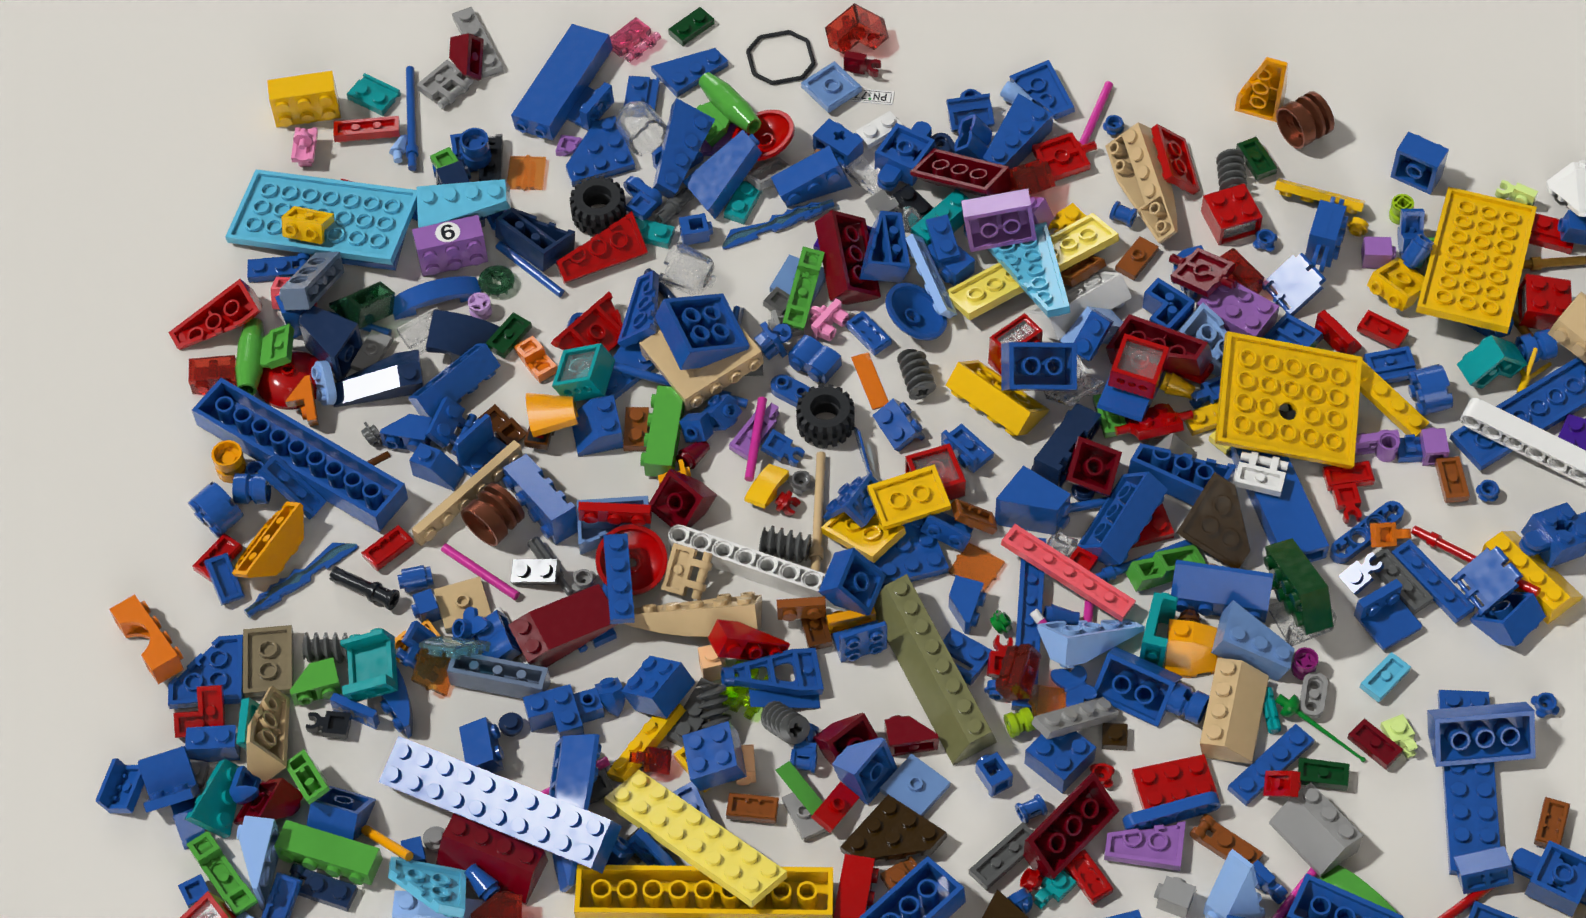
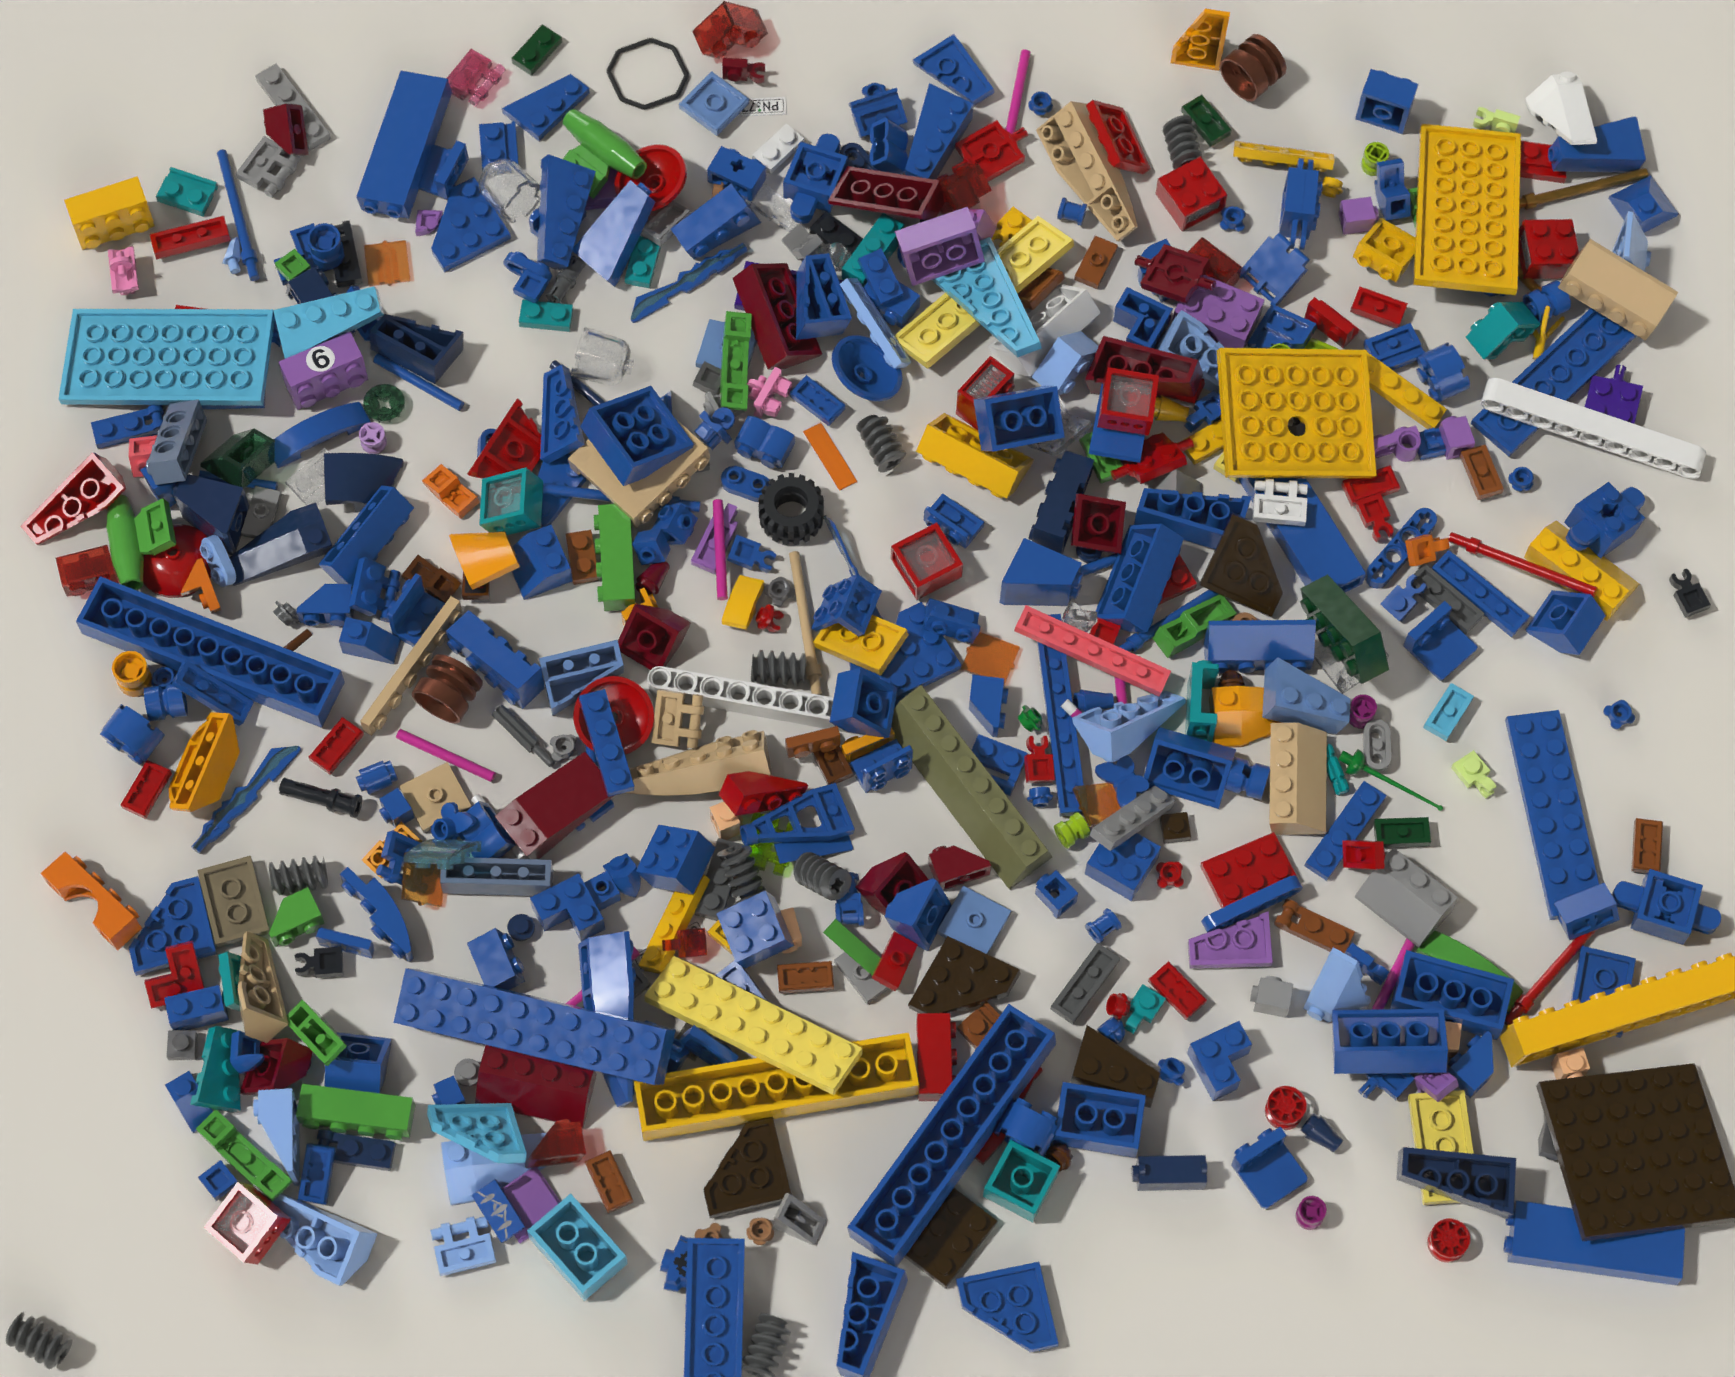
camera: 15 degrees left, 10 degrees up
(120, 788) = (107, 1076): blue bracket -> none
(168, 778) = (158, 1060): blue bracket -> none
(224, 582) = (159, 814): blue tile -> none
(306, 224) = (152, 372): yellow bracket -> none
(370, 665) = (353, 890): teal panel -> none
(387, 843) = (418, 1089): light orange bar -> none
(482, 882) = (532, 1114): blue cone -> none
(508, 335) = (413, 467): dark green plate -> none
(535, 571) = (508, 746): plate -> none
(597, 192) = (478, 276): black tyre -> none
(609, 248) = (502, 345): red wing -> none
(615, 513) = (586, 668): red plate -> none
(695, 229) = (597, 305): blue brick -> none
(898, 424) = (873, 505): blue bracket -> none
(908, 497) = (906, 595): yellow plate -> none
(974, 516) = (978, 602): dark orange plate -> none
(1011, 90) = (920, 81): light blue cone -> none
(1018, 672) = (1062, 776): clear red brick -> none
(1069, 828) = (1151, 943): dark red slope -> none
(1092, 334) = (1069, 369): blue plate -> none
(1375, 743) = (1450, 789): dark red plate -> none
(1417, 251) = (1402, 210): blue brick -> none
(1482, 733) = (1561, 761): blue slope -> none
(1488, 579) = (1540, 585): plate -> none

